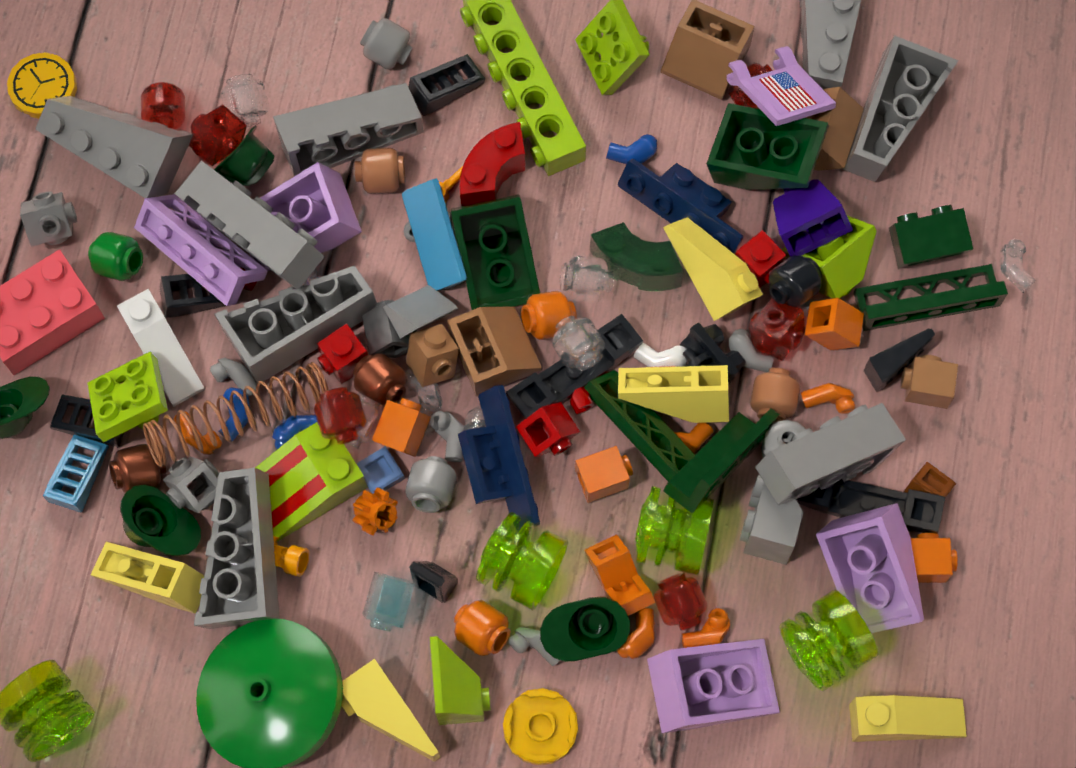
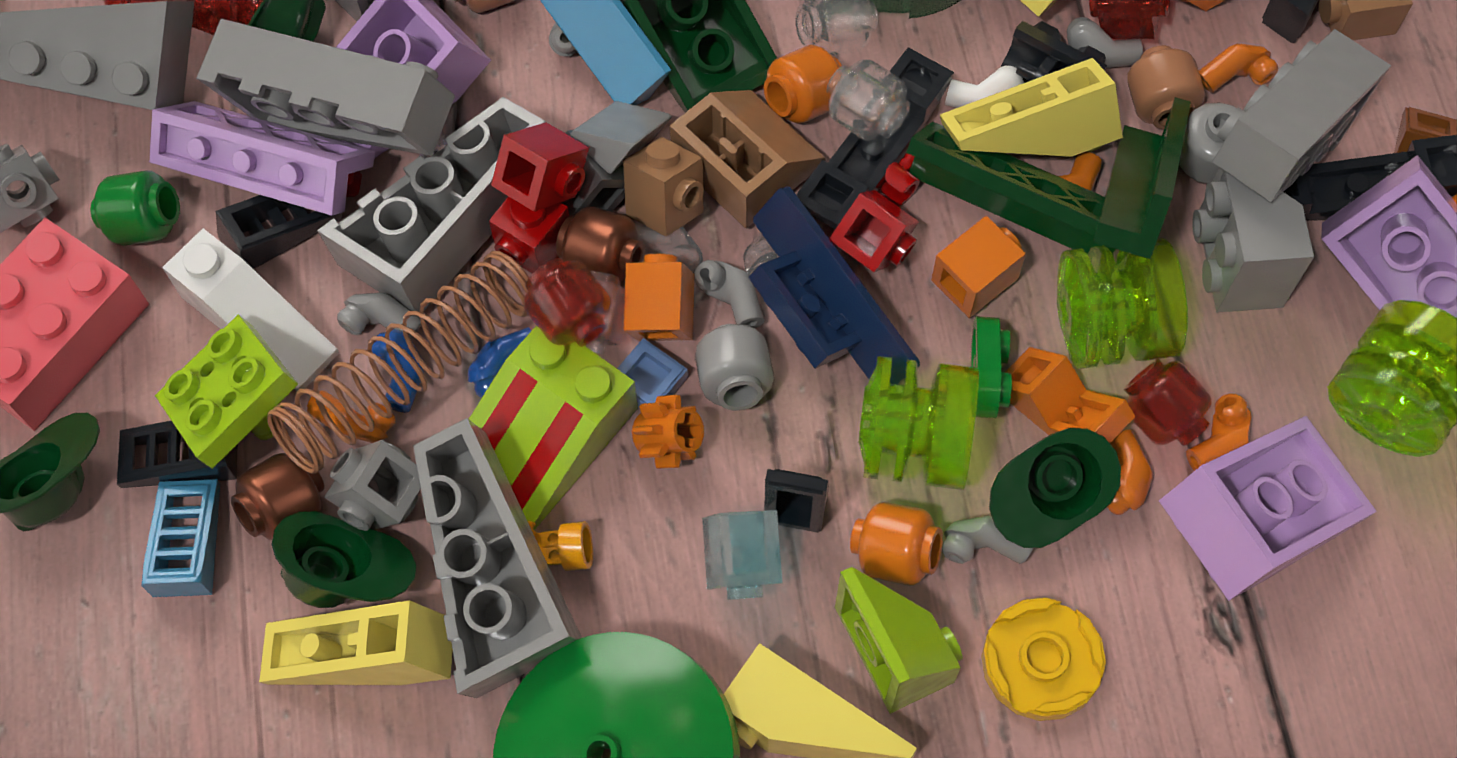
camera: 20 degrees left, 5 degrees down
(357, 322) = (540, 166): none -> red brick
(587, 528) = (988, 351): none -> green plate

